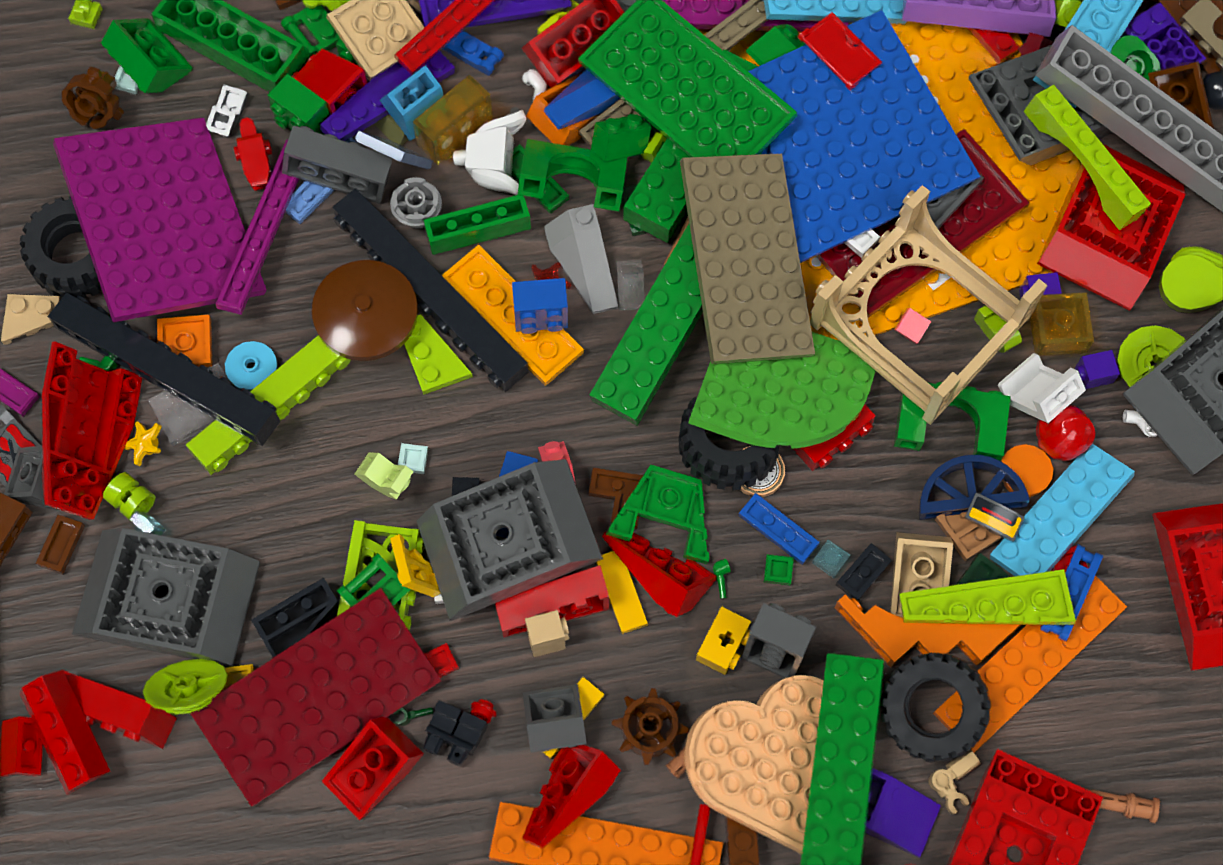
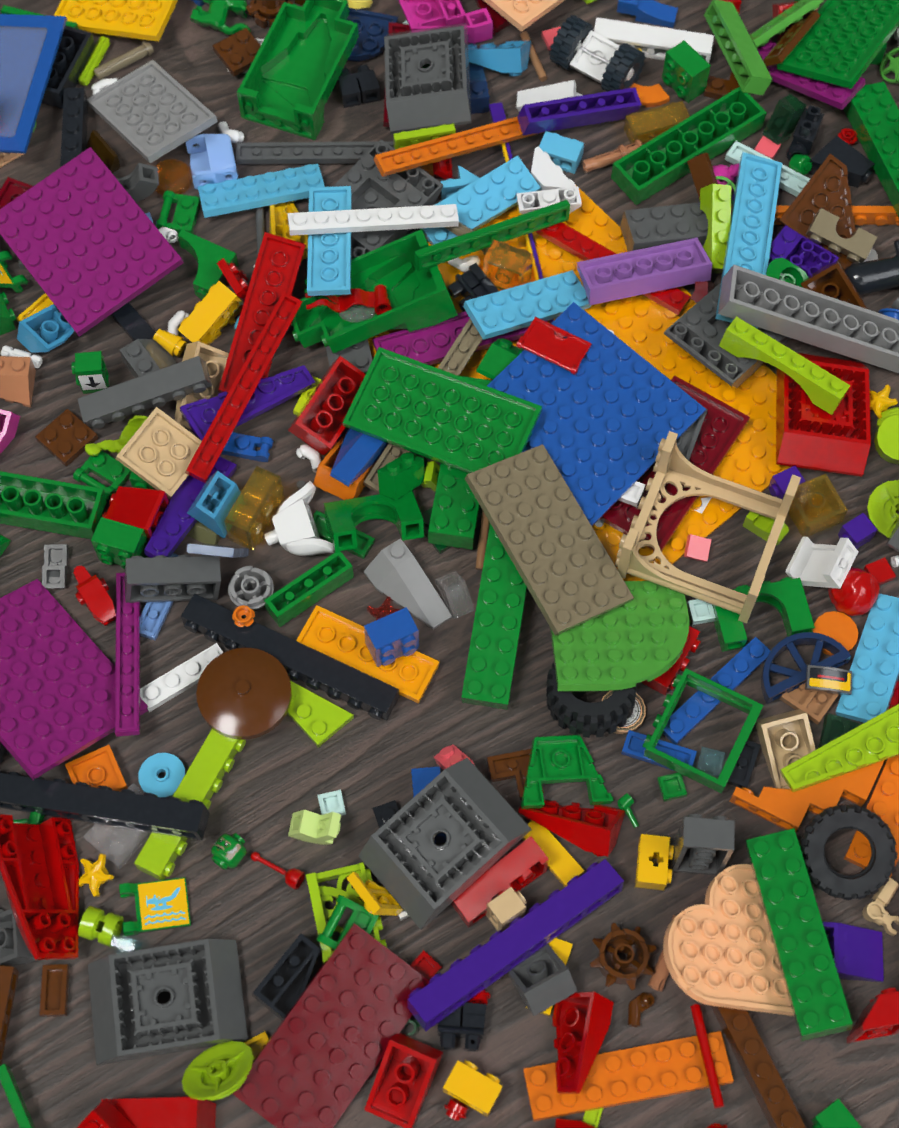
camera: 20 degrees left, 5 degrees down
(195, 497) = (158, 905): none -> flag
(287, 467) = (228, 851): none -> green head
(304, 272) = (178, 679): none -> white plate
(343, 518) = (293, 877): none -> red hinge
(391, 224) = (239, 612): none -> orange plate
(414, 816) = (456, 1109): none -> red plate
(438, 801) = (473, 1087): none -> yellow brick
(541, 671) = (514, 945): none -> dark purple brick
(644, 784) = (637, 1006): none -> reddish brown arm
(809, 482) = (719, 692): none -> green window
(867, 485) = (729, 676): none -> blue plate
(887, 395) = (700, 612): none -> light aqua plate
(1105, 421) = (881, 571): none -> red tile
(1185, 234) = (880, 402): none -> yellow animal

